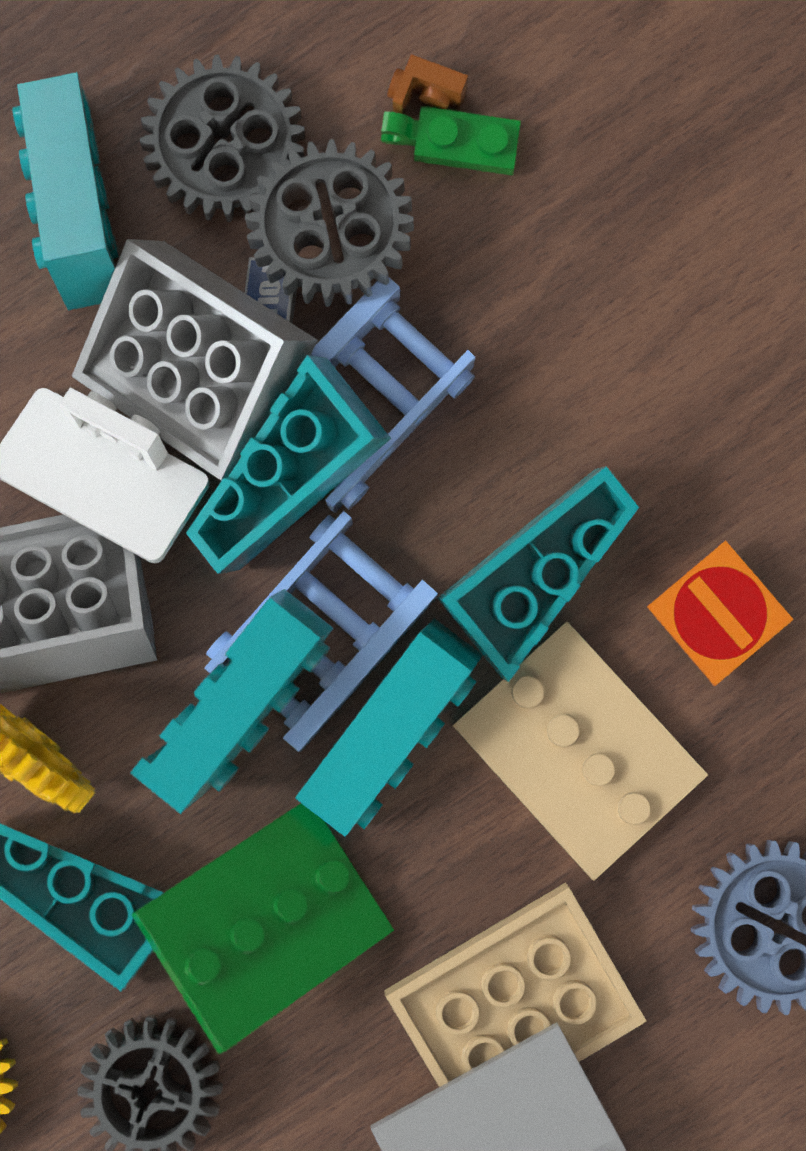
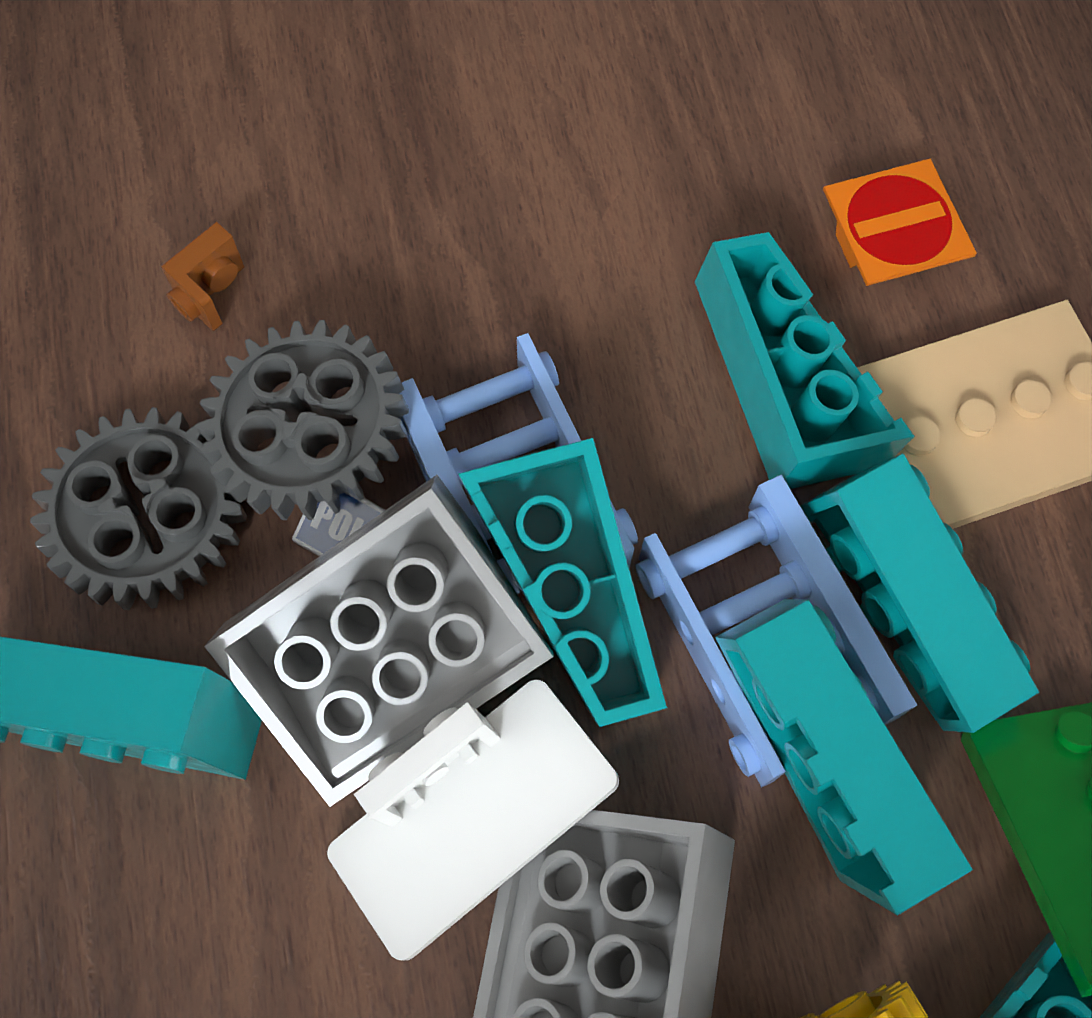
camera: 70 degrees left, 15 degrees down
(456, 139) = (273, 278): green plate -> none

